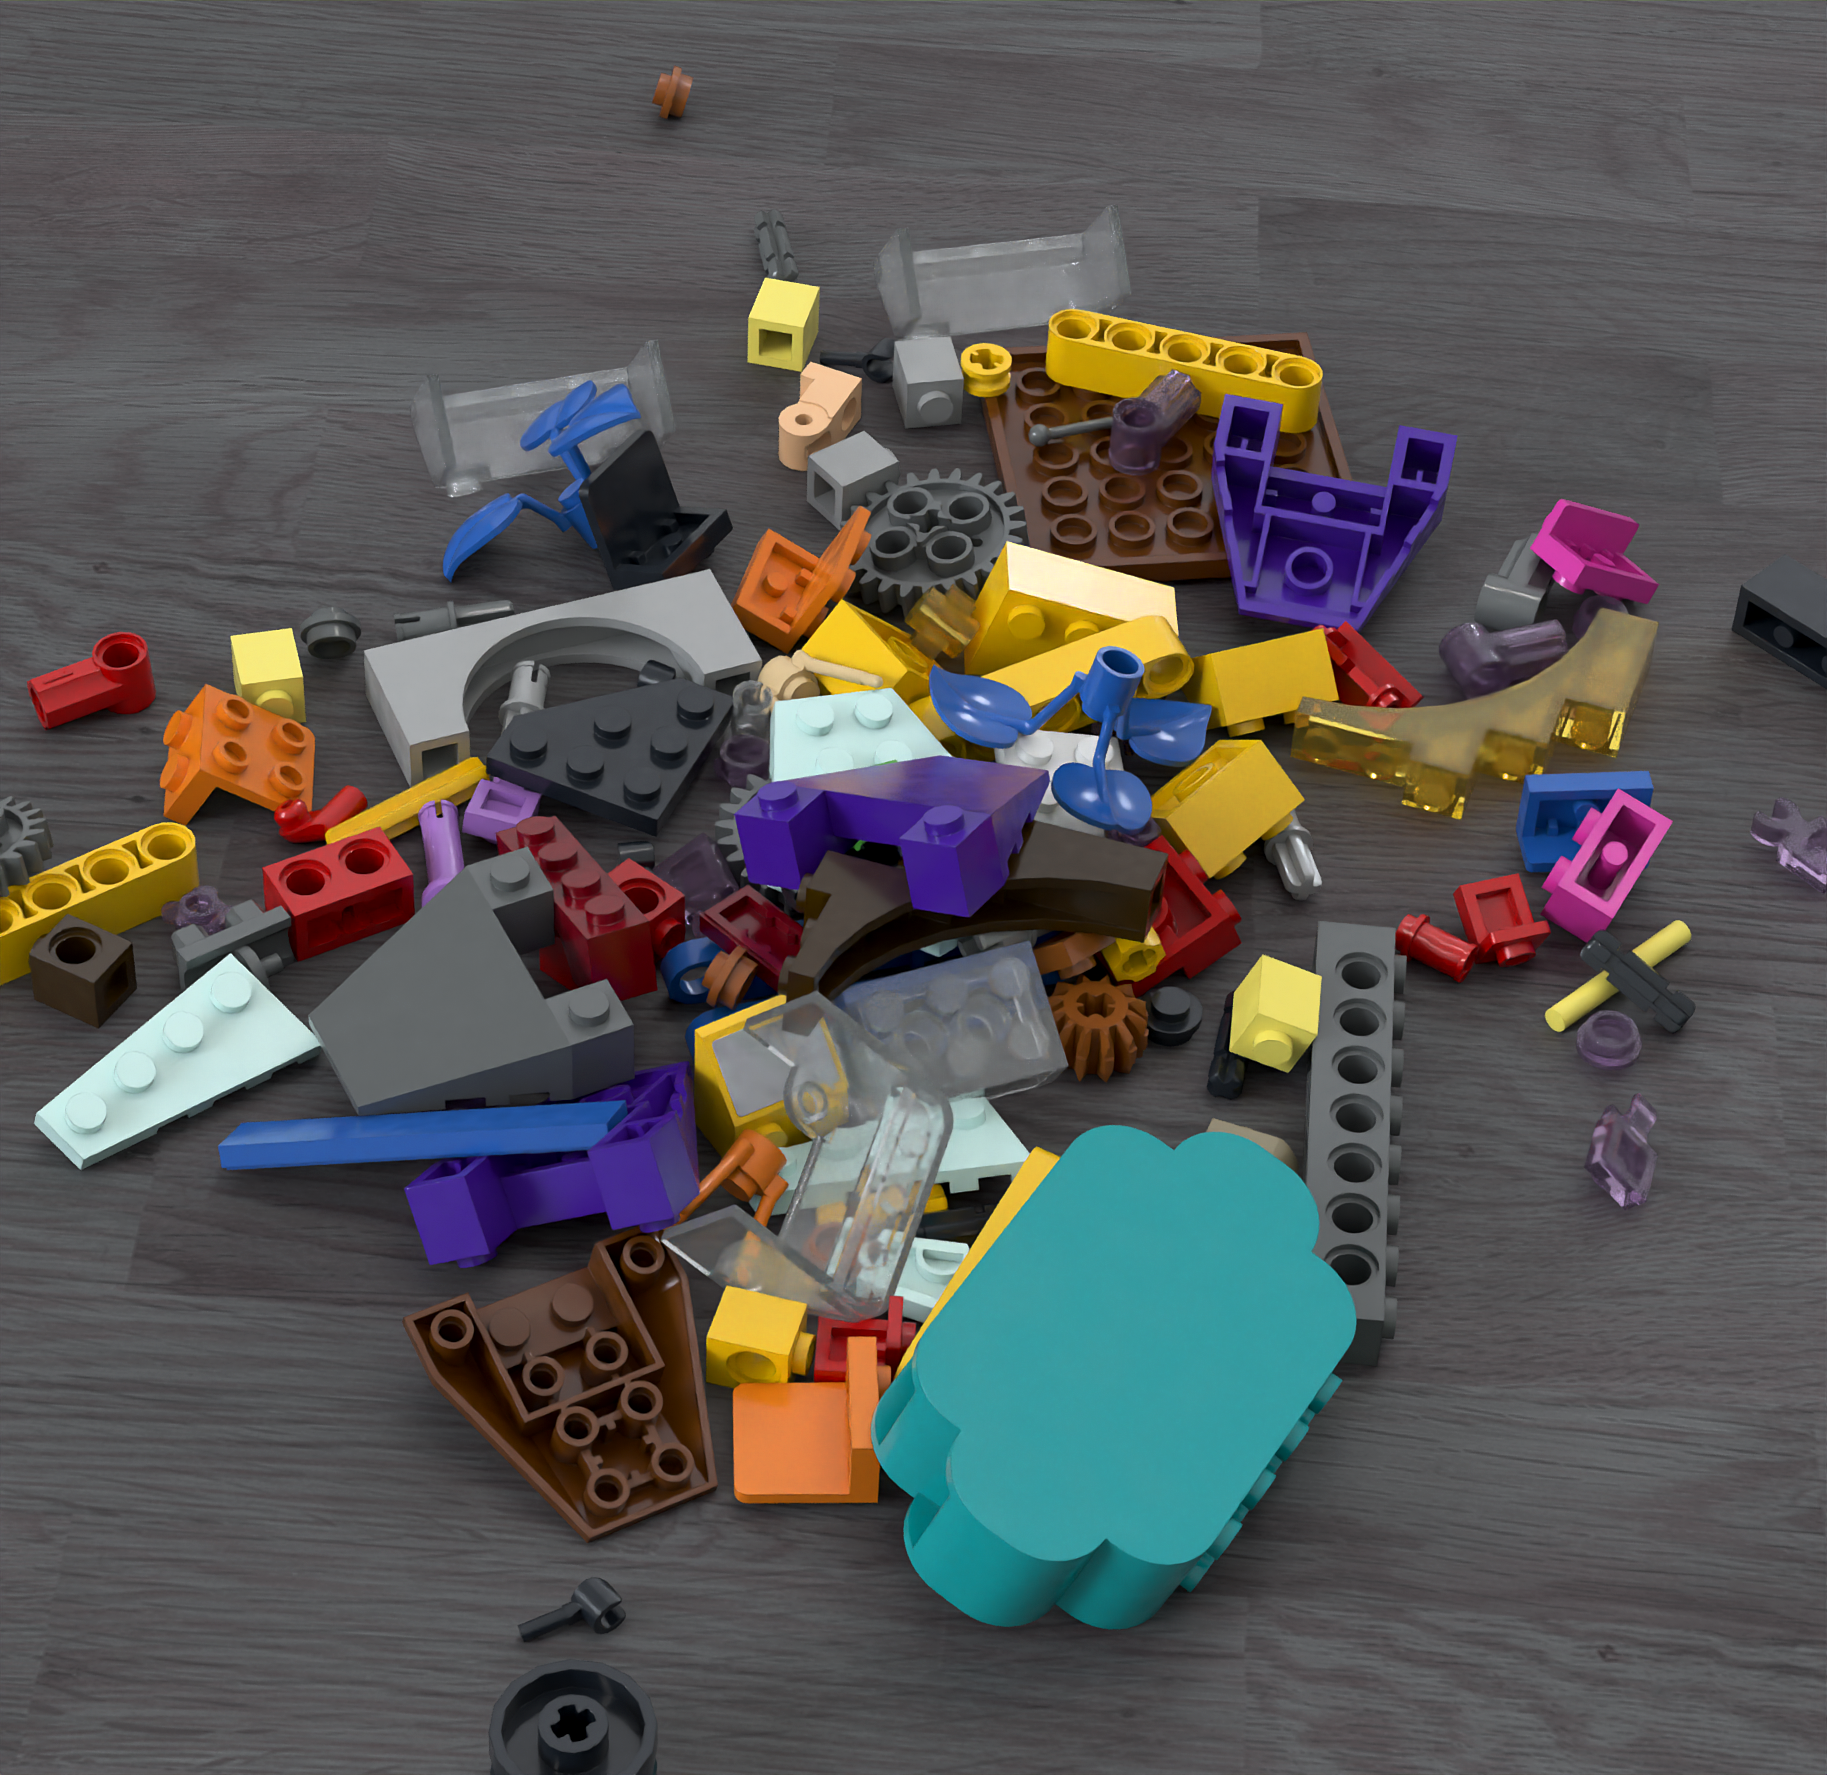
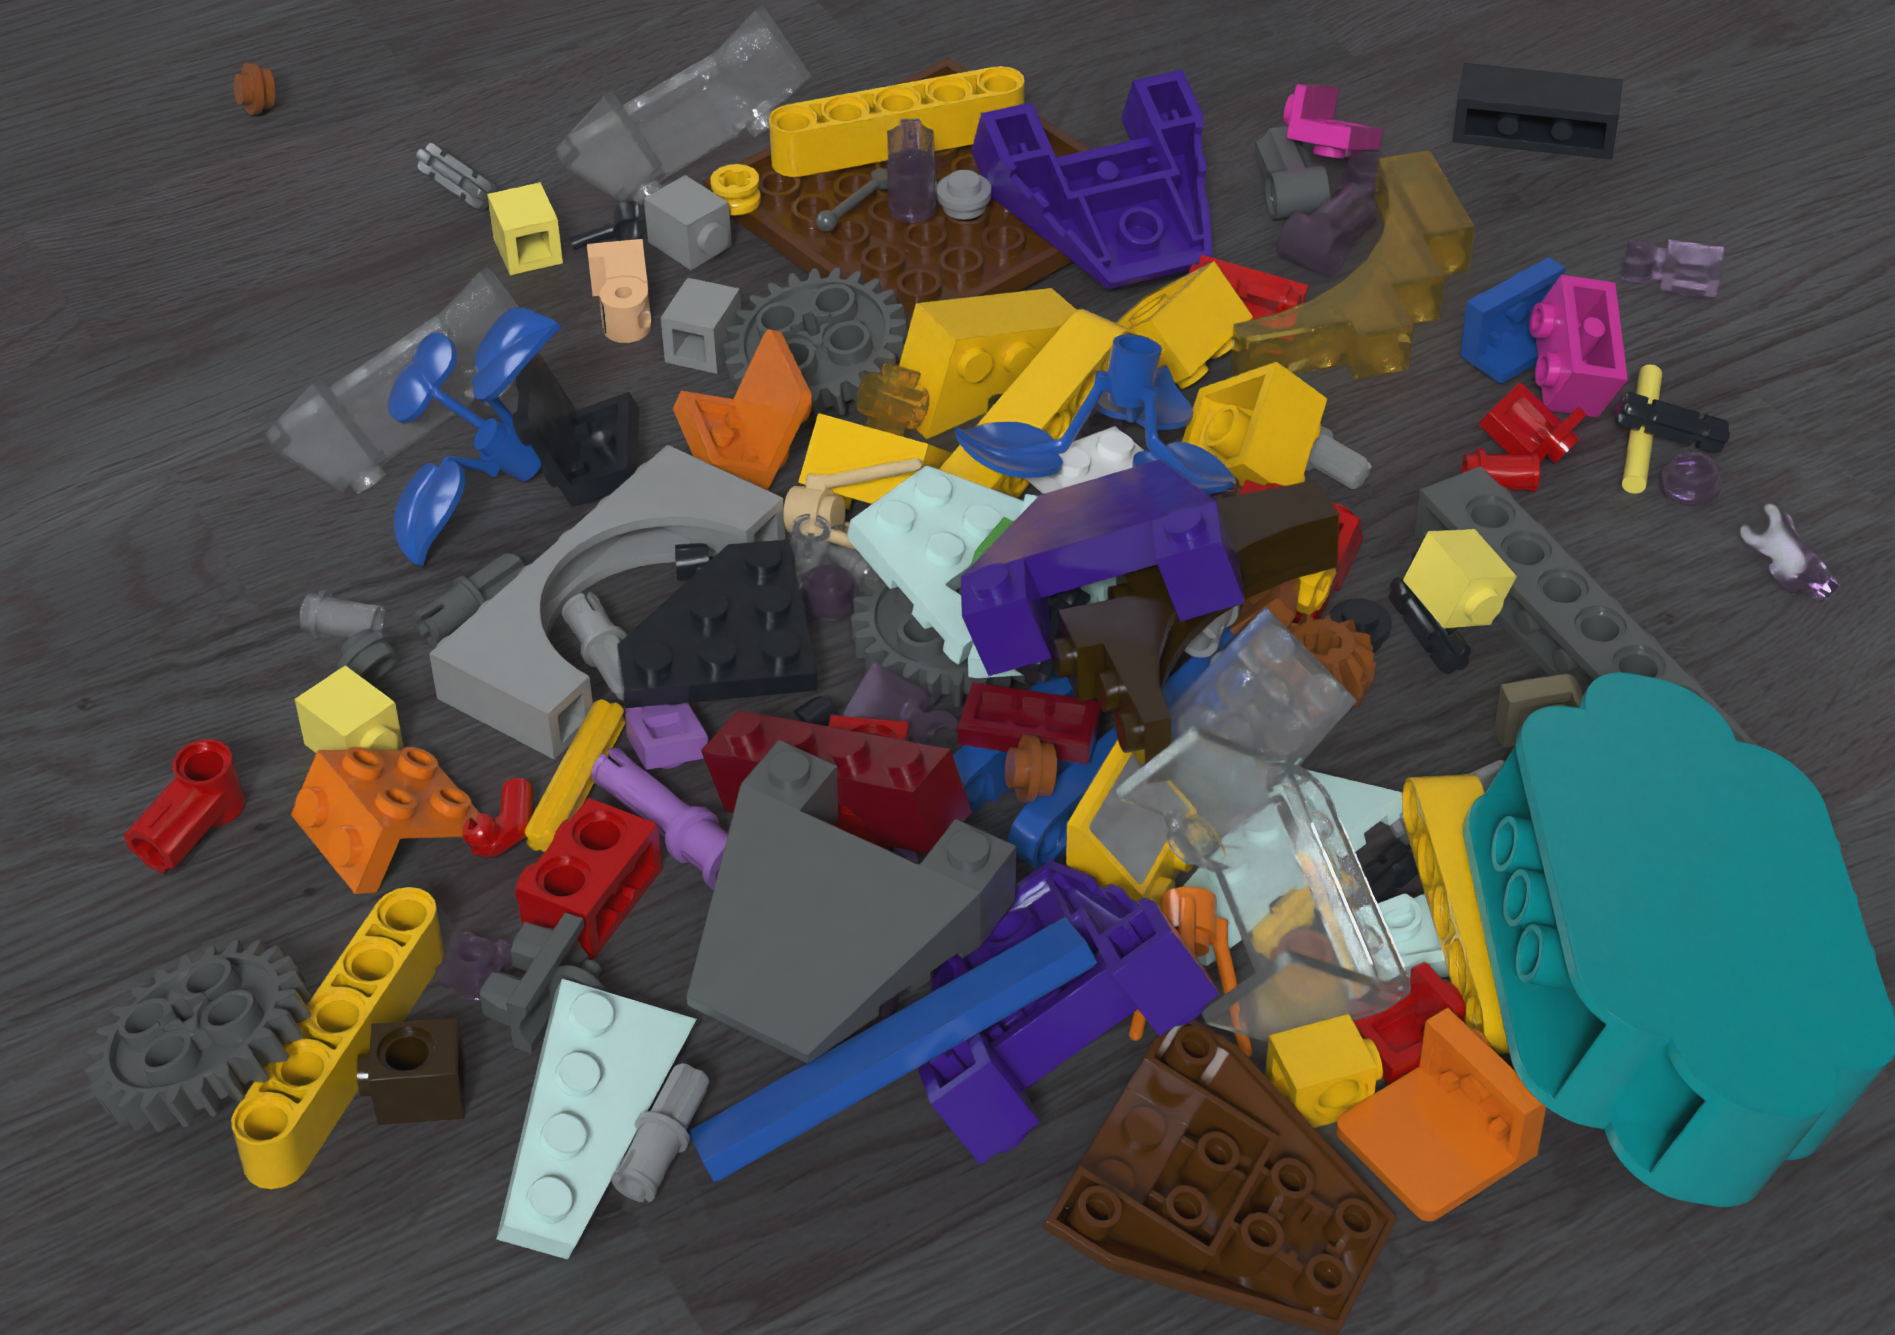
camera: 30 degrees left, 0 degrees up
(219, 1112) = (661, 1134): none -> light grey axle
(330, 582) = (338, 617): none -> clear pin
(1183, 466) = (964, 194): none -> light grey plate

